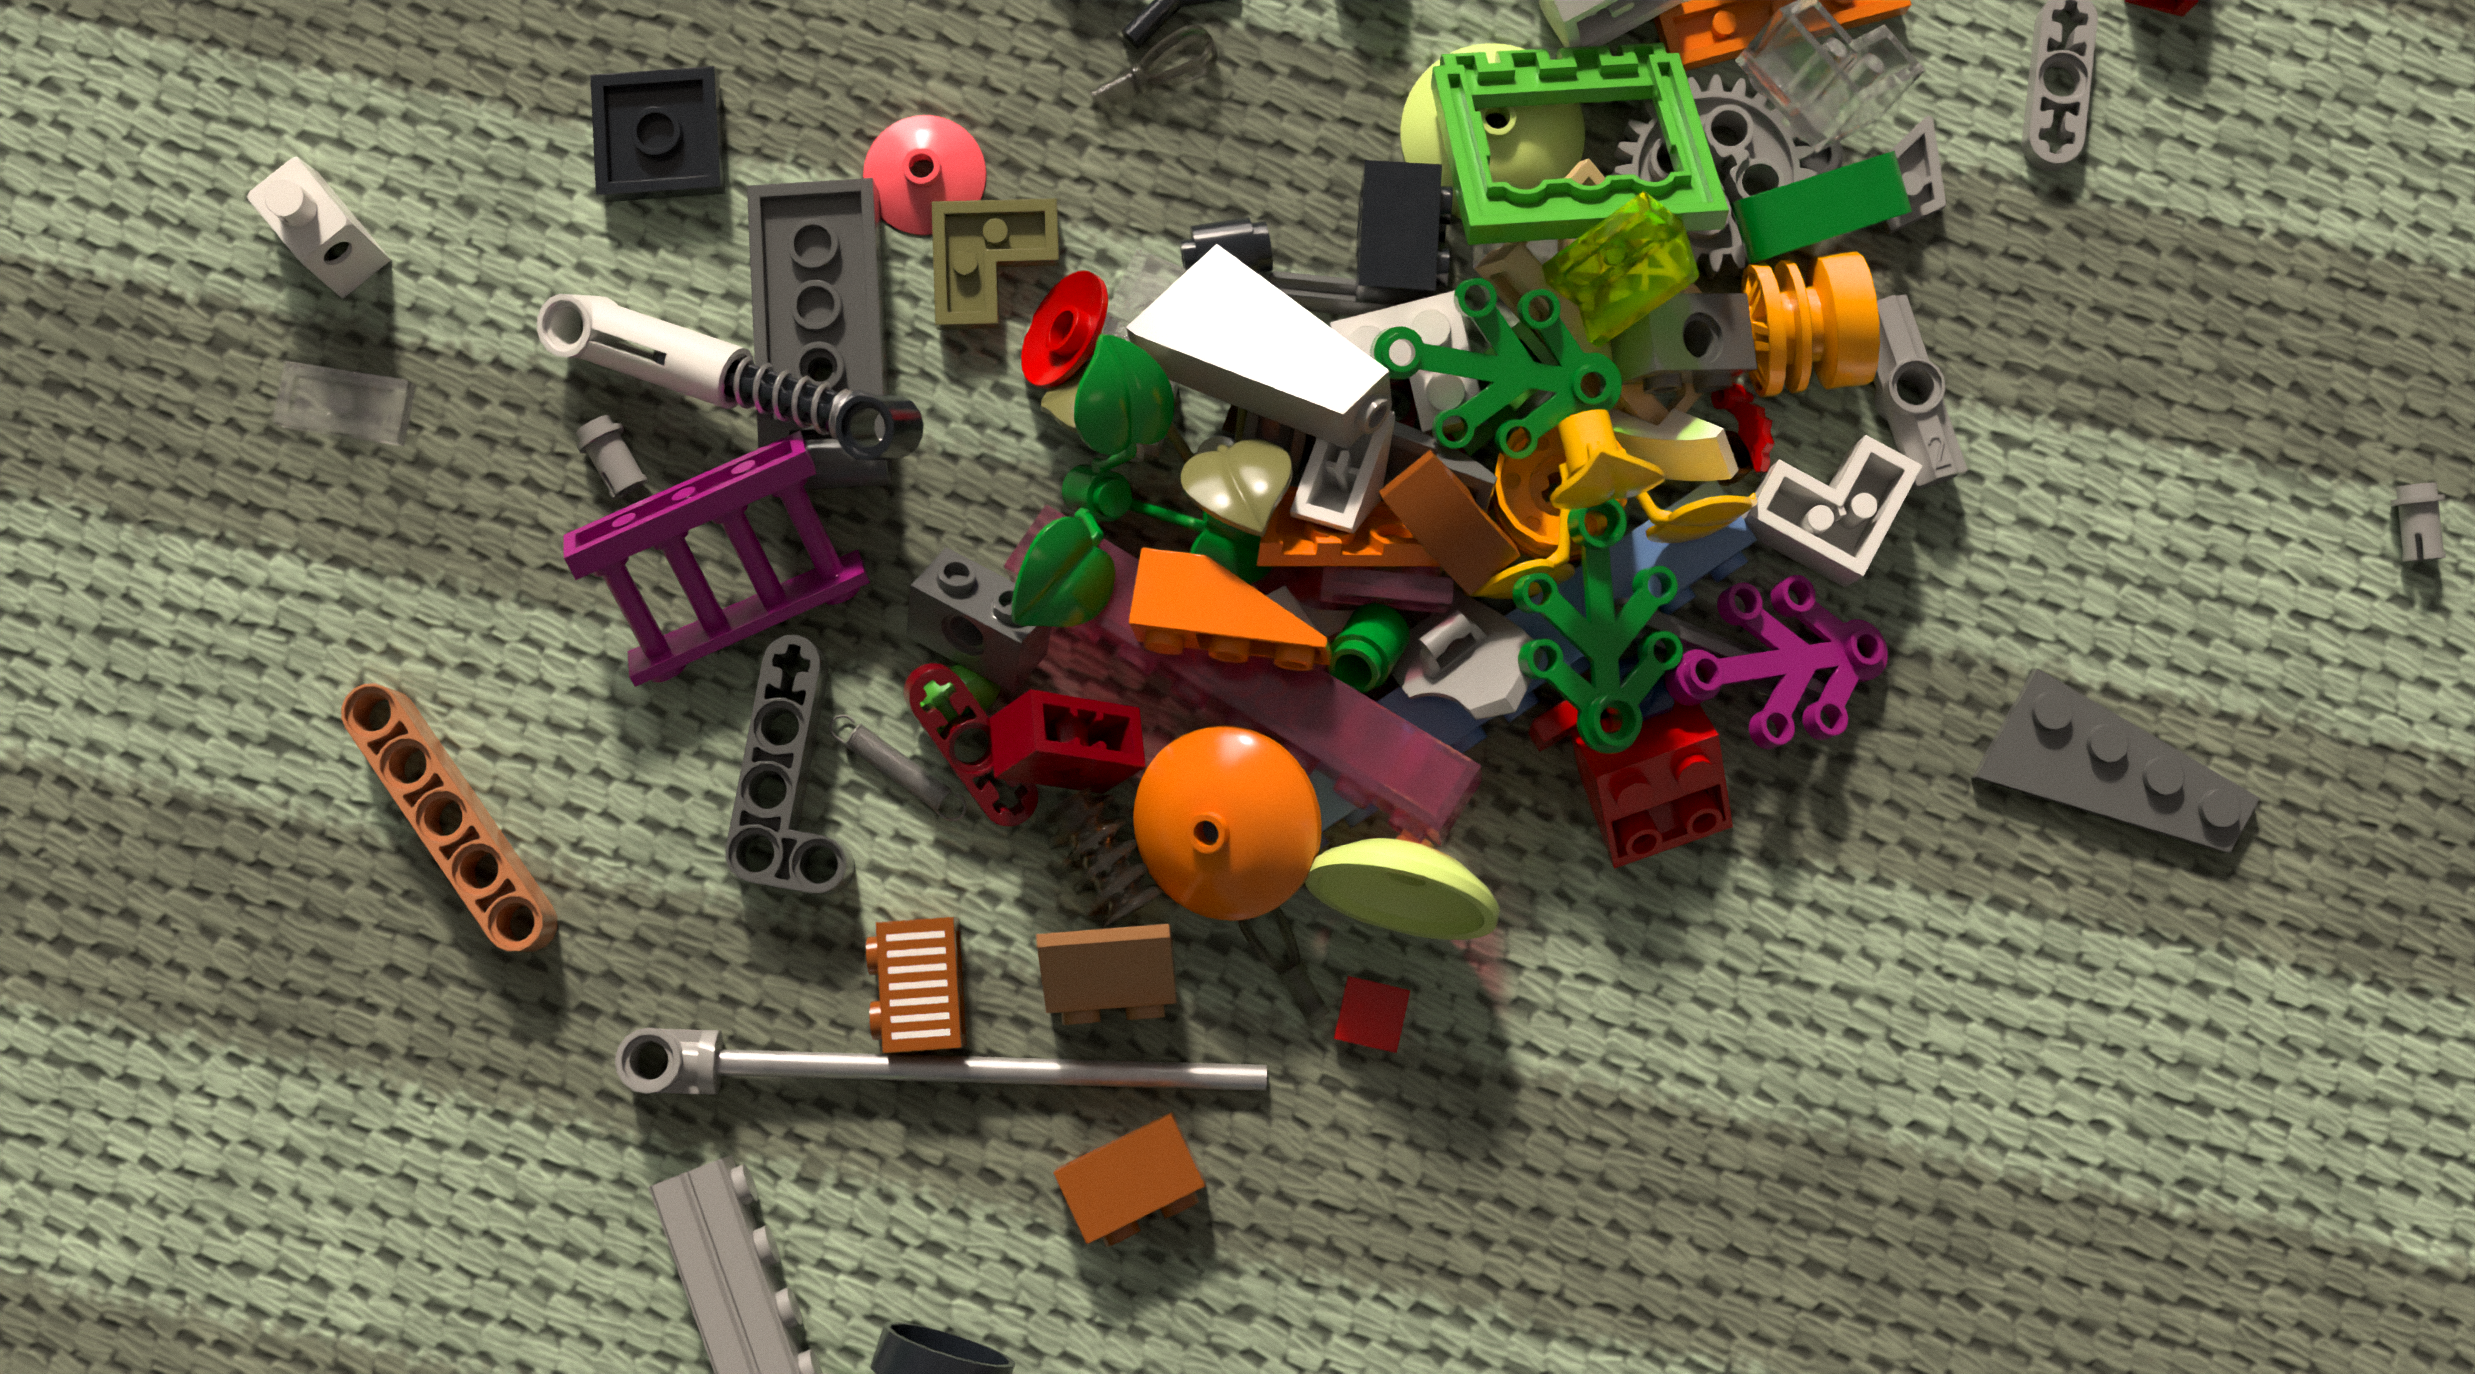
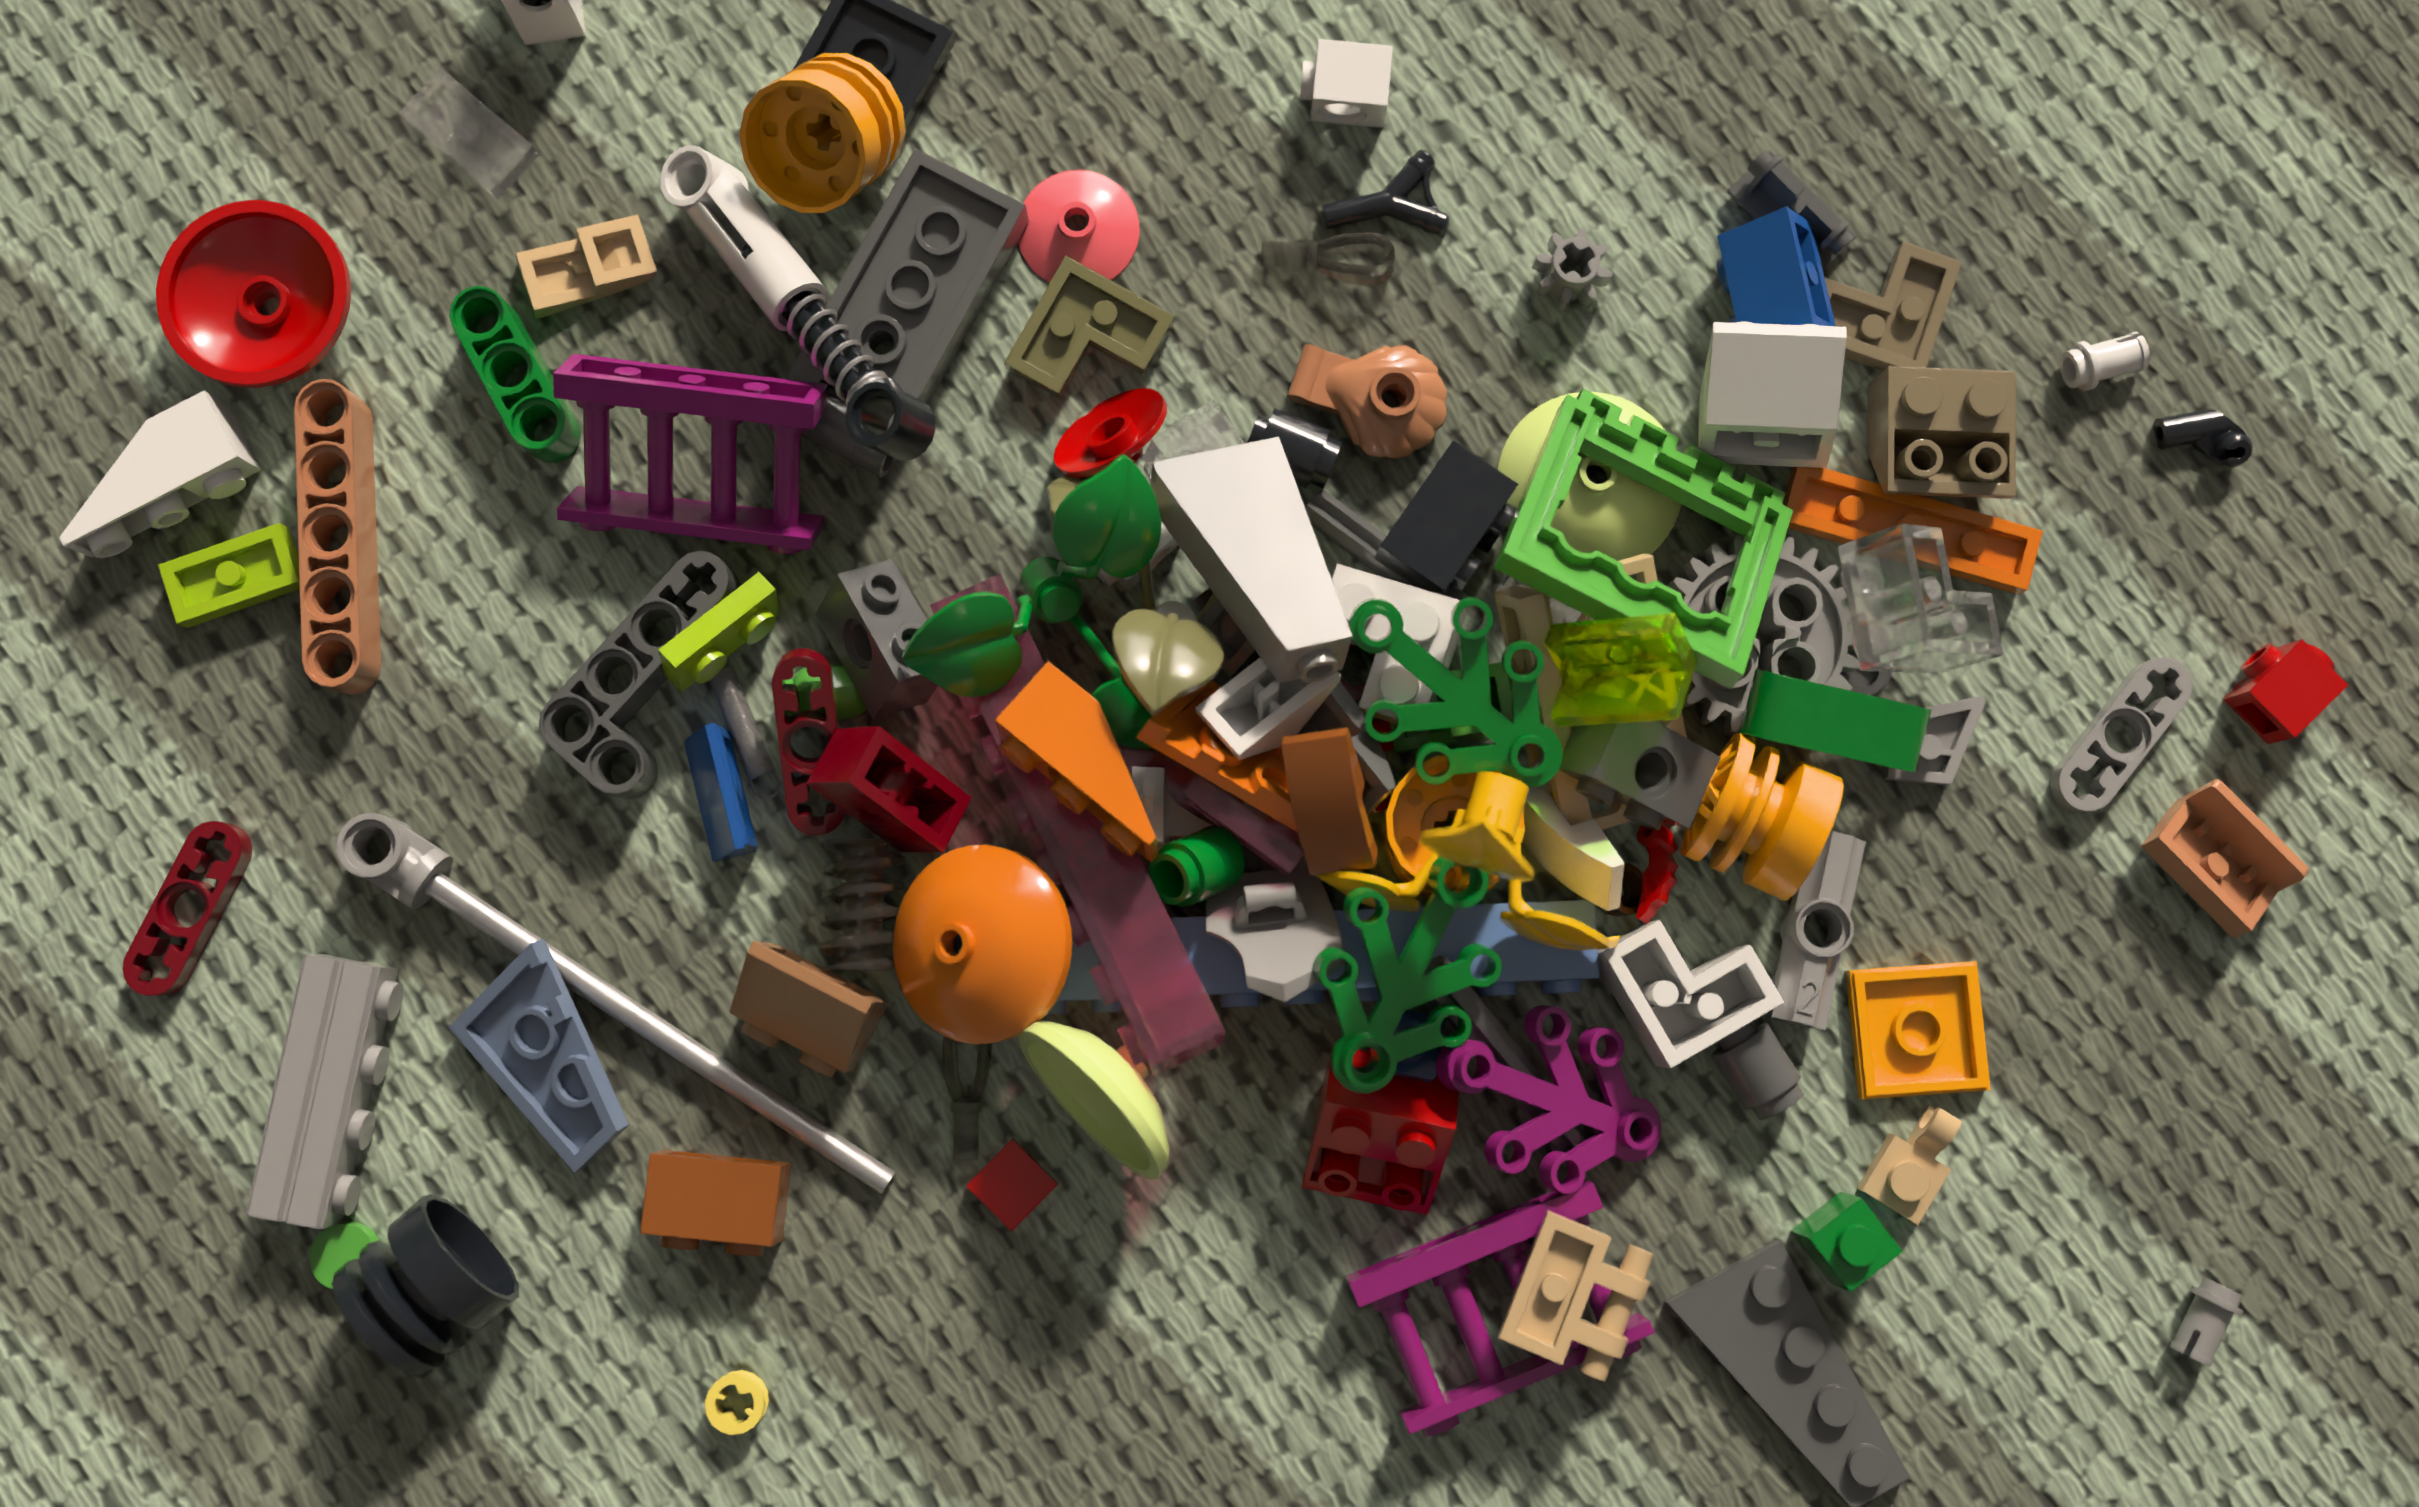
camera: 30 degrees right, 0 degrees up
(206, 646) = (224, 273): none -> red dish
(260, 851) = (162, 472): none -> white slope
(376, 906) = (231, 575): none -> lime plate
(495, 568) = (495, 356): none -> green beam
(497, 1233) = (161, 913): none -> dark red beam
(519, 460) = (594, 265): none -> tan slope
(611, 456) = (663, 311): light grey pin -> none
(645, 244) = (822, 132): none -> light orange wheel
(830, 718) = (704, 645): none -> lime plate
(906, 1150) = (542, 1056): none -> sand blue wing
(916, 838) = (720, 793): none -> blue slope
(917, 985) = (639, 921): dark orange brick -> none
(1251, 174) = (1355, 391): none -> nougat animal
(1254, 1359) = (728, 1421): none -> light yellow bush
(1553, 725) = (1319, 1031): red tile -> none
(1776, 857) = (1446, 1263): none -> magenta fence
(1881, 815) = (1556, 1288): none -> tan plate
(1933, 538) = (1758, 1070): none -> dark grey brick
(2041, 426) = (1917, 1030): none -> light orange tile
(2090, 634) = (1846, 1241): none -> green brick
(2104, 549) = (1906, 1172): none -> tan plate
(2204, 130) = (2223, 856): none -> nougat bracket

